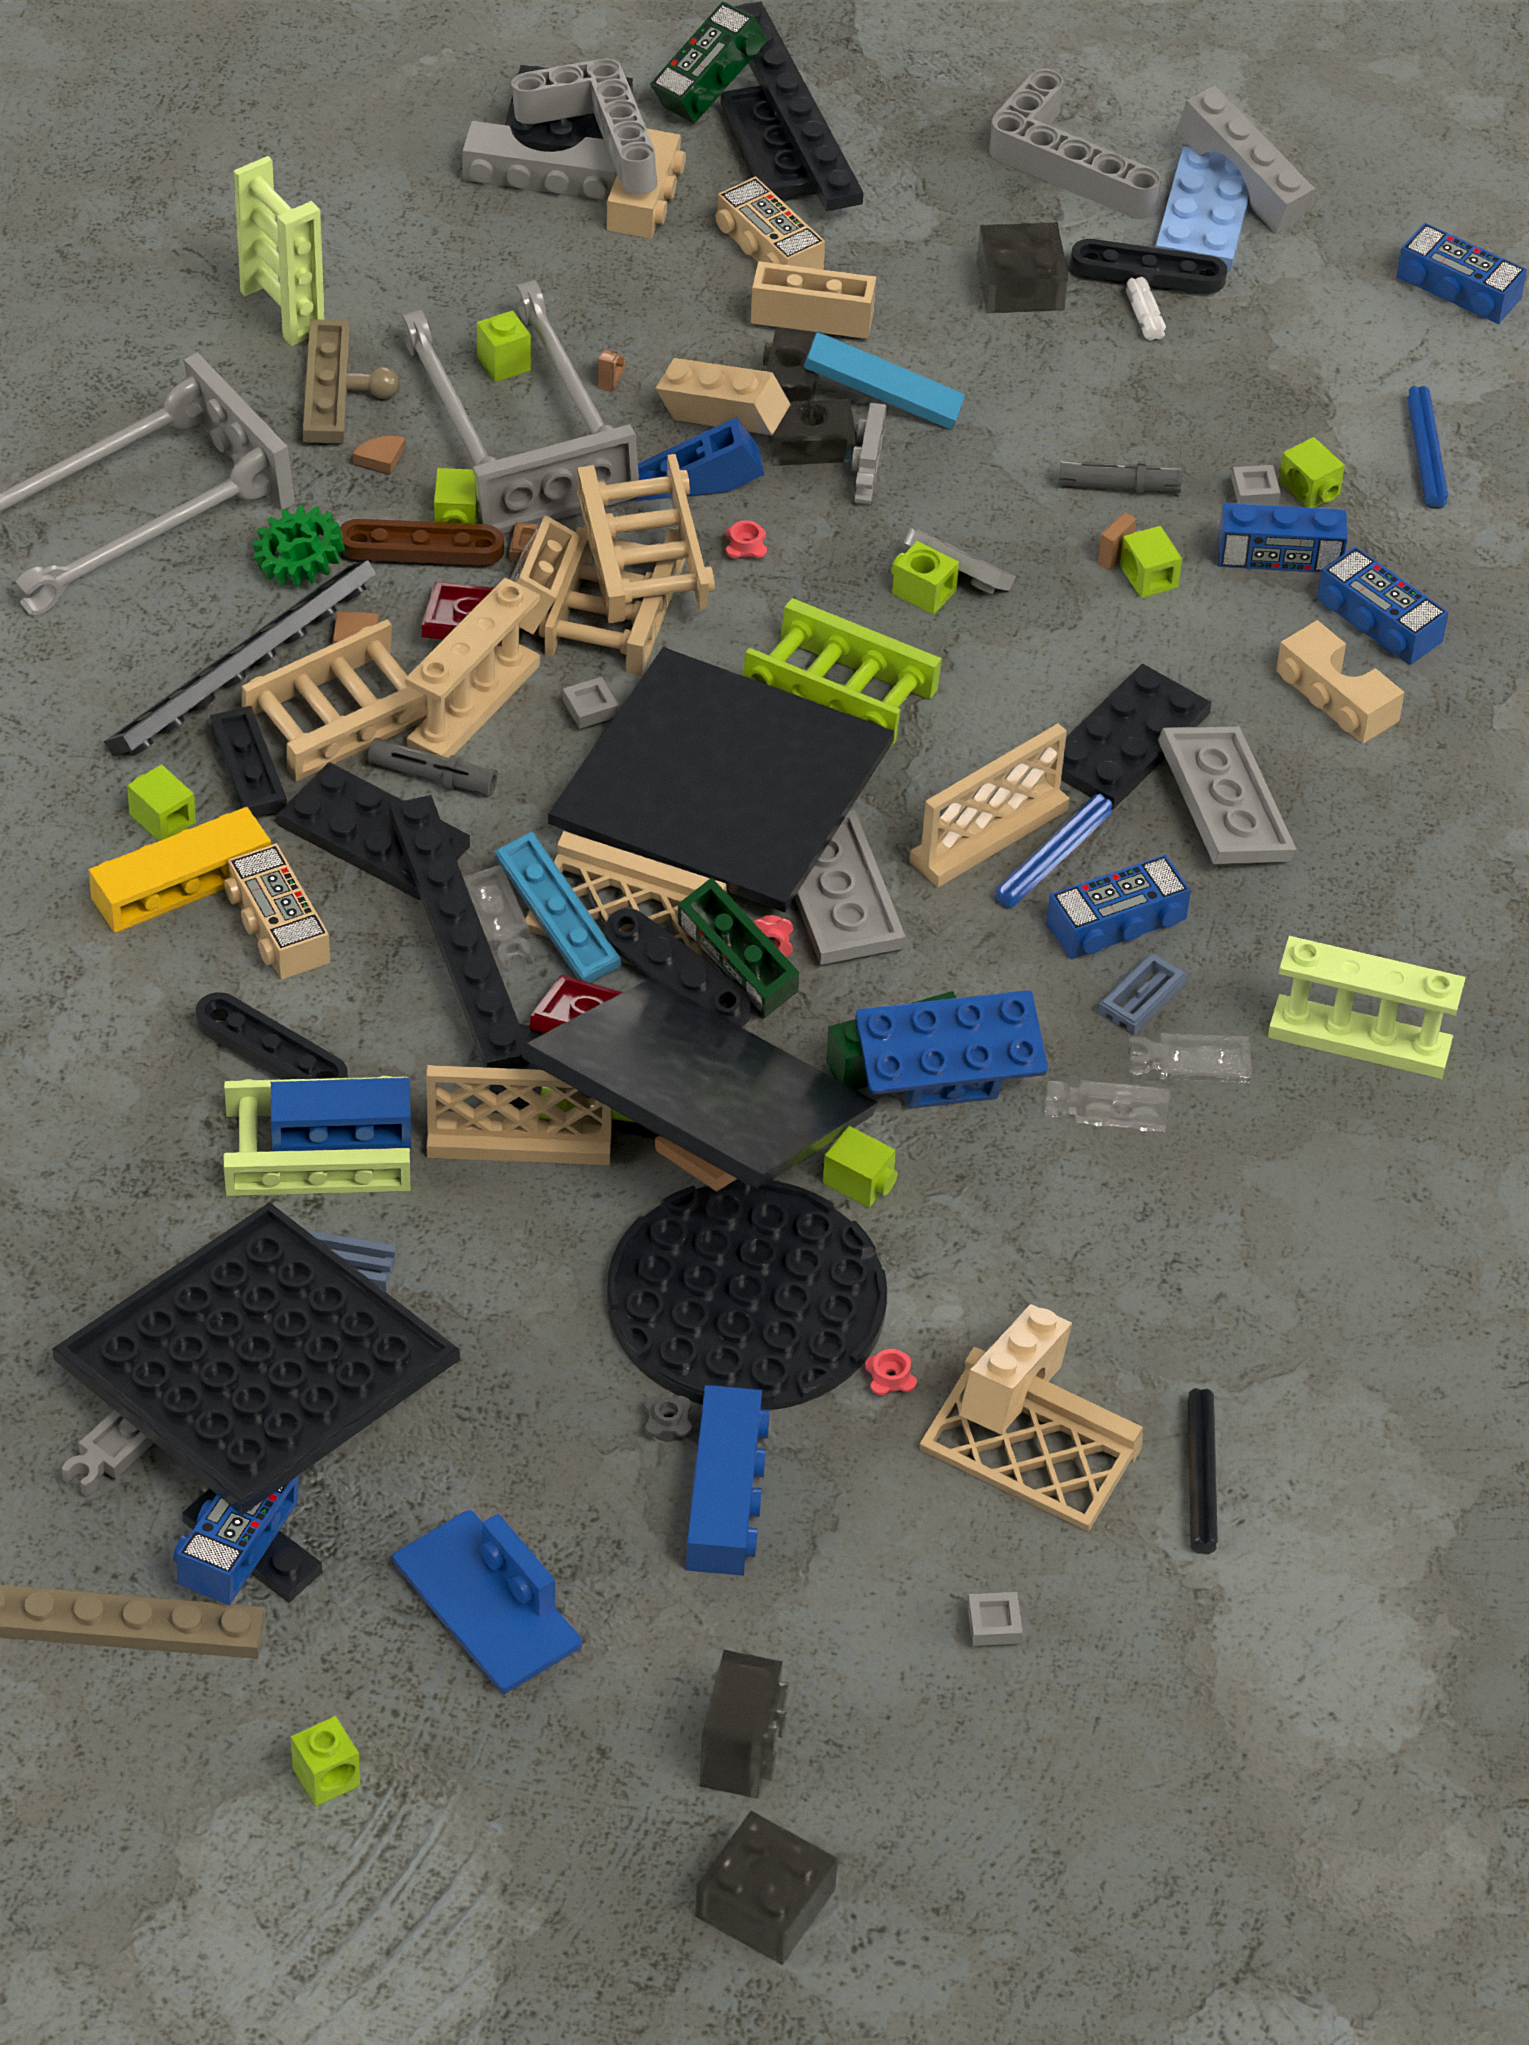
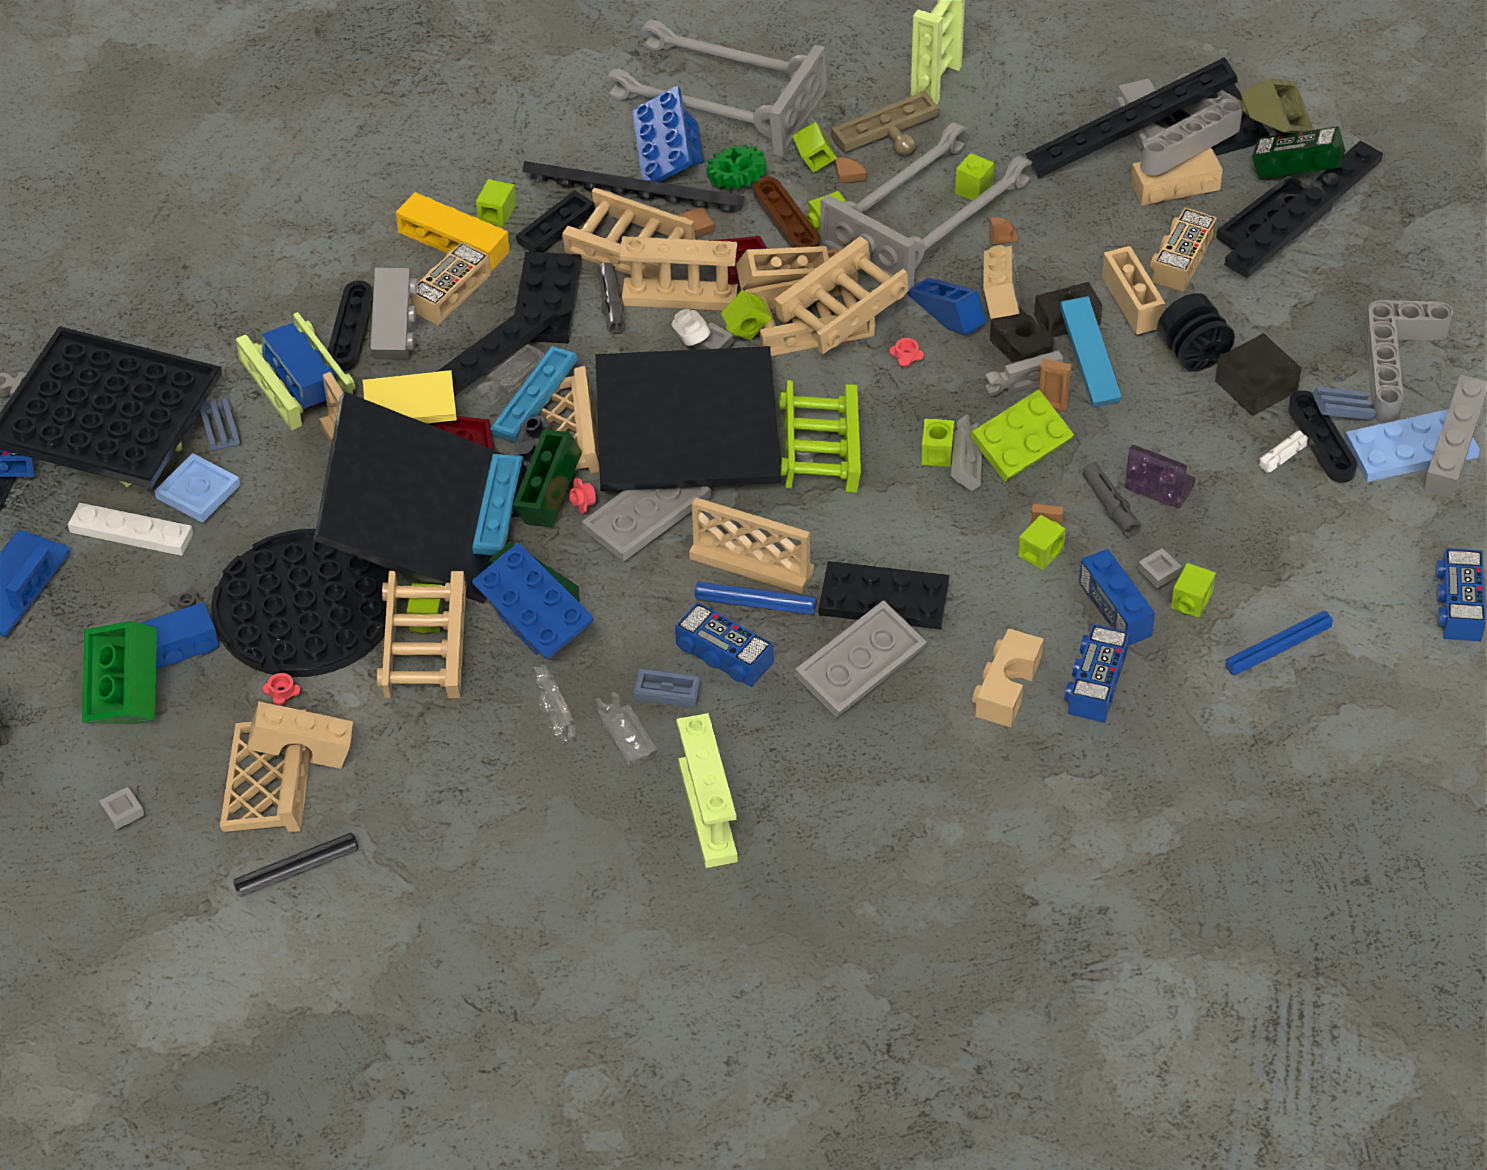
camera: 65 degrees right, 0 degrees up
(180, 590) = (666, 136): none -> blue bracket
(311, 982) = (393, 313): none -> light grey brick
(325, 458) = (814, 147): none -> lime brick
(470, 1318) = (197, 487): none -> light blue plate
(475, 1432) = (130, 529): none -> white plate
(503, 1015) = (419, 396): none -> light yellow tile
(543, 158) = (1132, 117): none -> black plate
(551, 710) = (690, 327): none -> white plate
(583, 649) = (746, 315): none -> lime brick
(626, 35) = (1277, 105): none -> olive slope
(747, 1015) = (497, 504): none -> dark azure tile
(782, 1522) = (119, 673): none -> green slope
(925, 431) = (1055, 383): none -> medium nougat tile
(931, 279) = (1195, 332): none -> black wheel
(943, 1146) = (449, 648): none -> tan fence
(970, 501) = (1021, 435): none -> lime plate
(1118, 217) = (1344, 403): none -> sand blue tile
(1125, 418) = (1158, 477): none -> clear purple bracket

